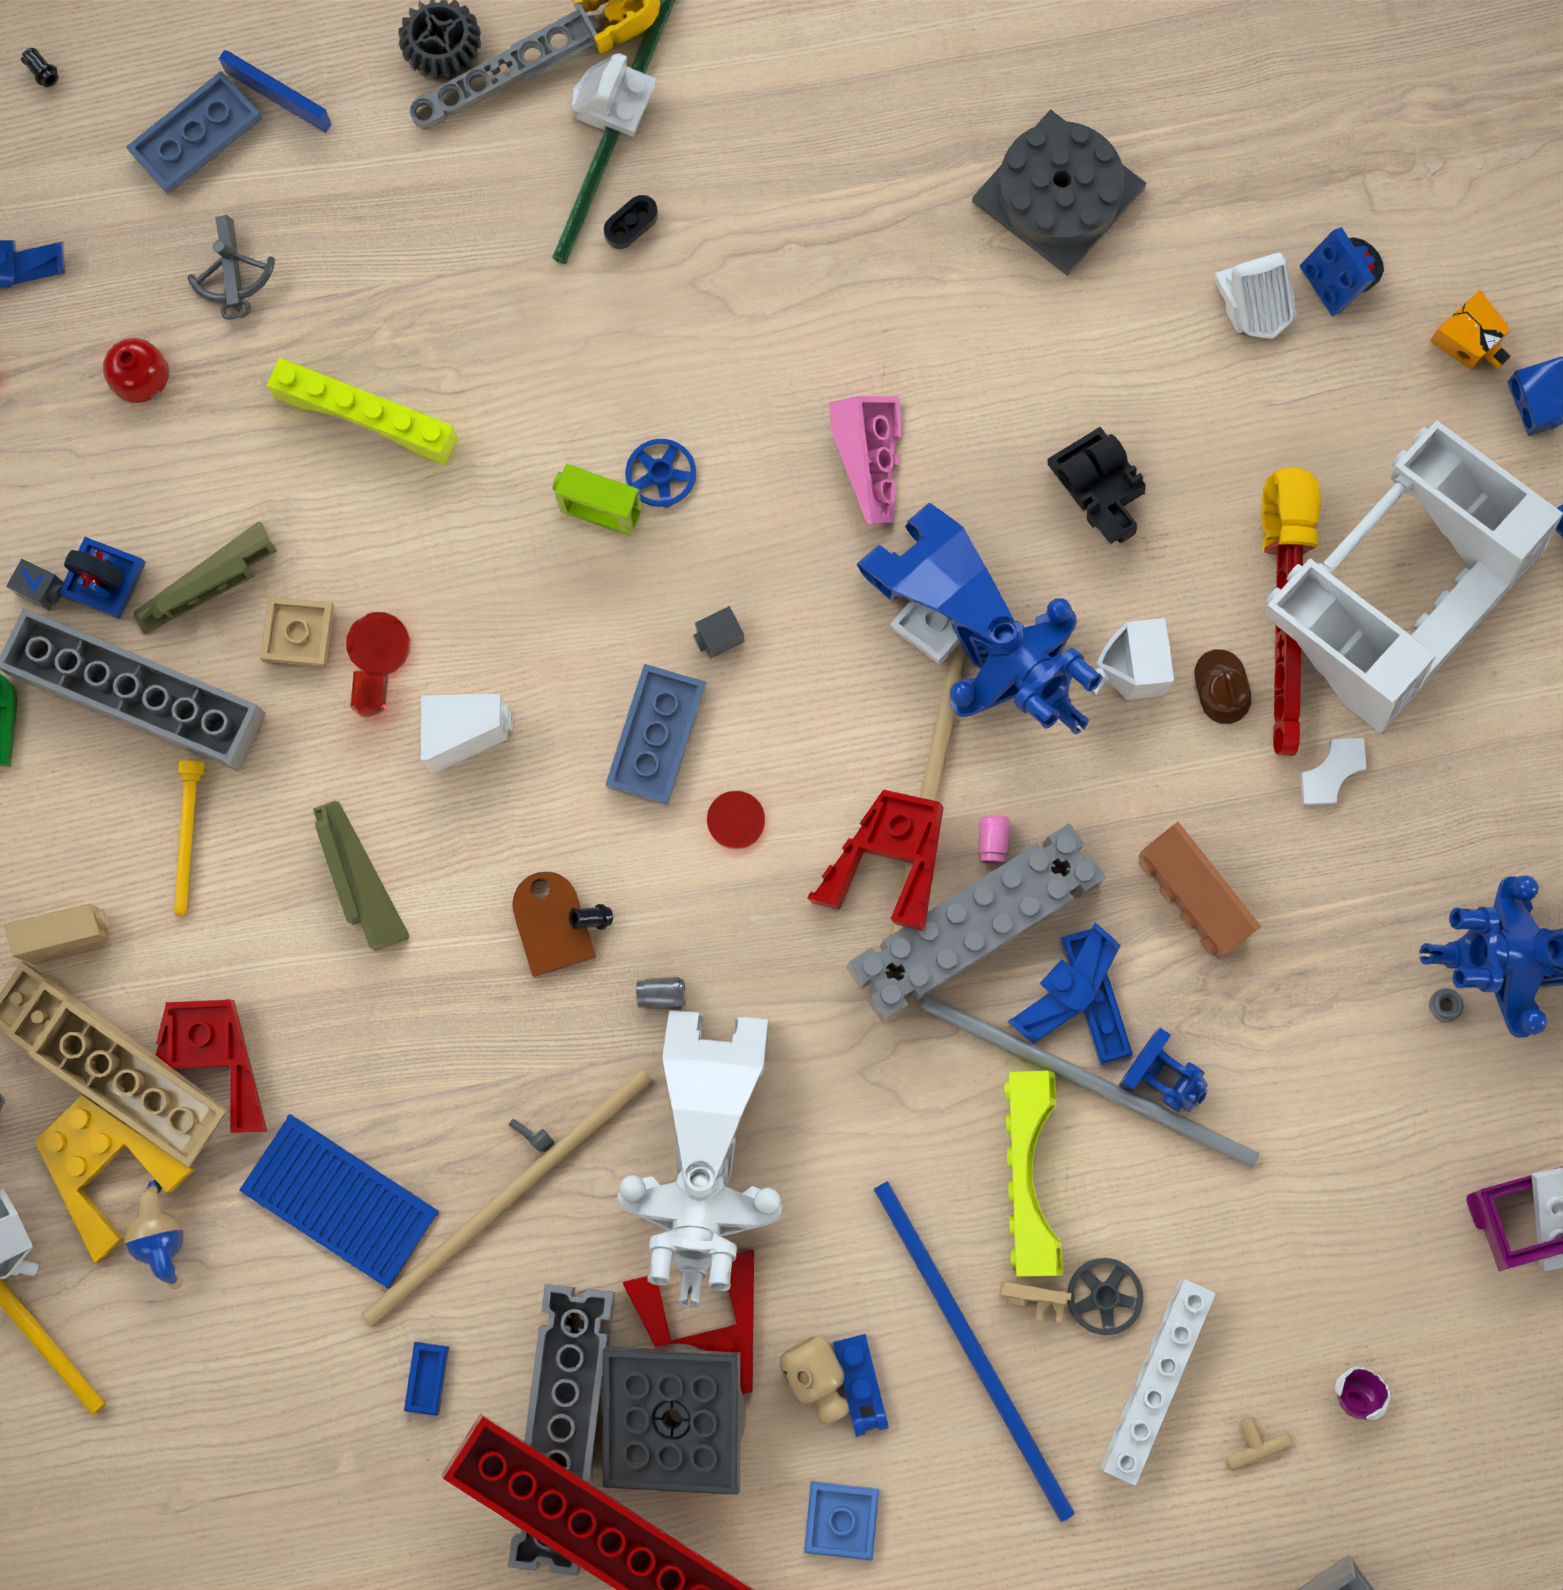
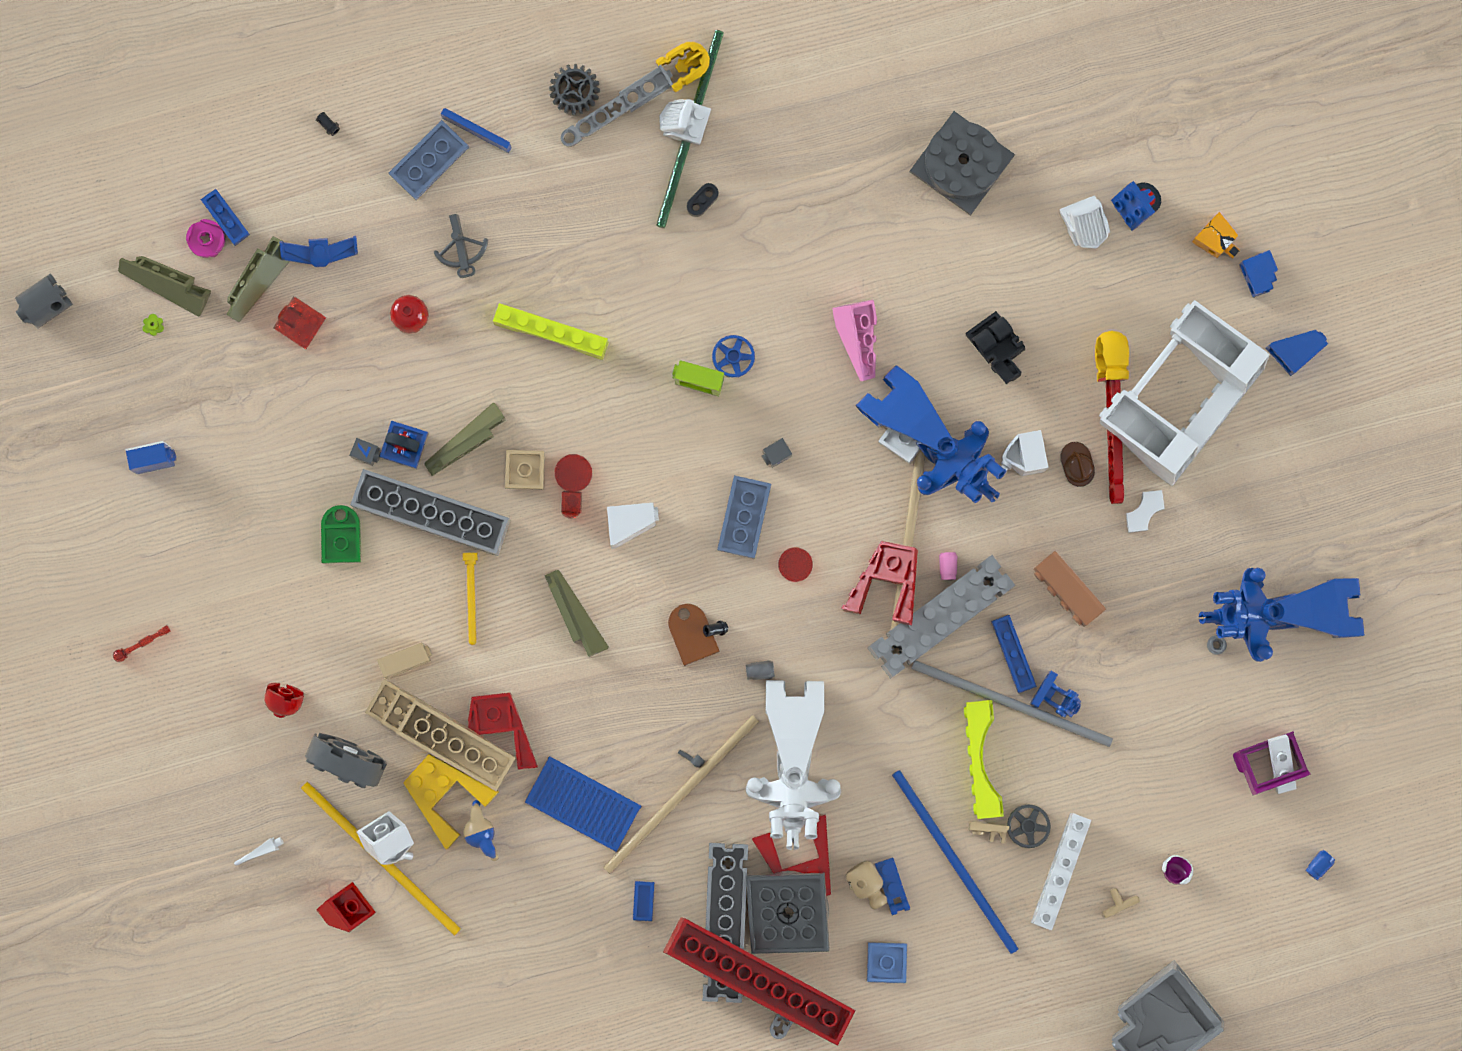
camera: 10 degrees left, 5 degrees up
(1069, 987) = (997, 650): blue plate -> none

